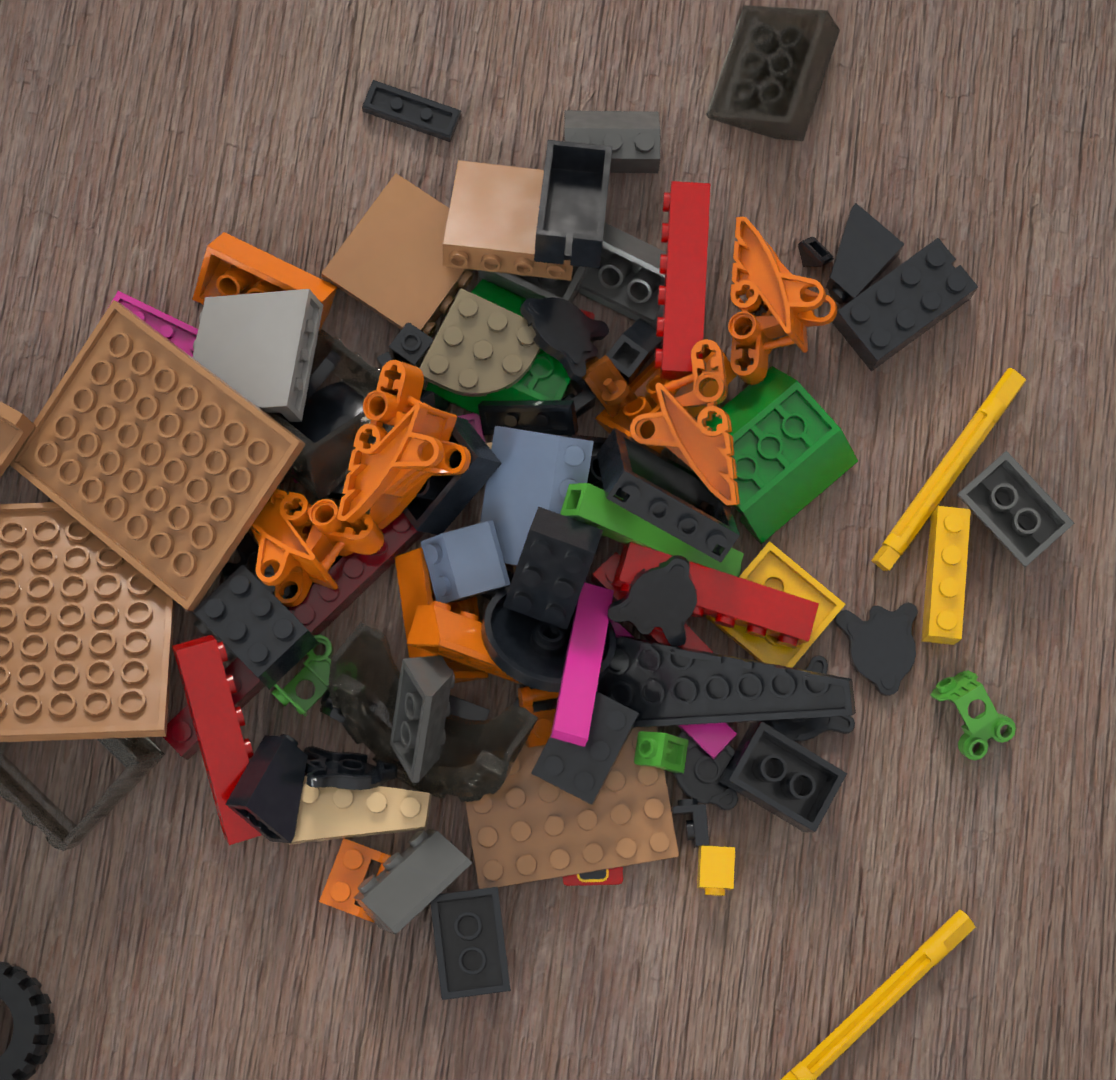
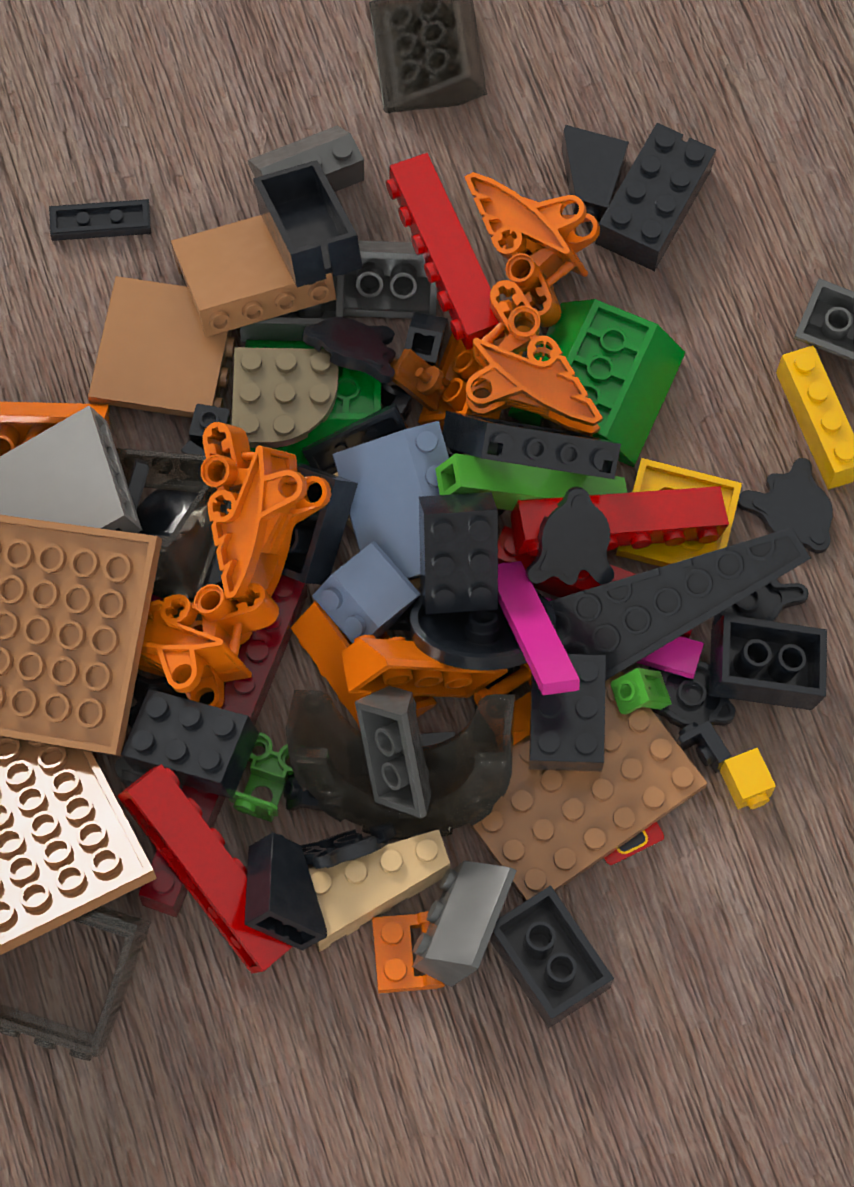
camera: 25 degrees left, 10 degrees down
(814, 253) = (547, 188): black slope -> none
(949, 469) = (772, 326): yellow piece -> none

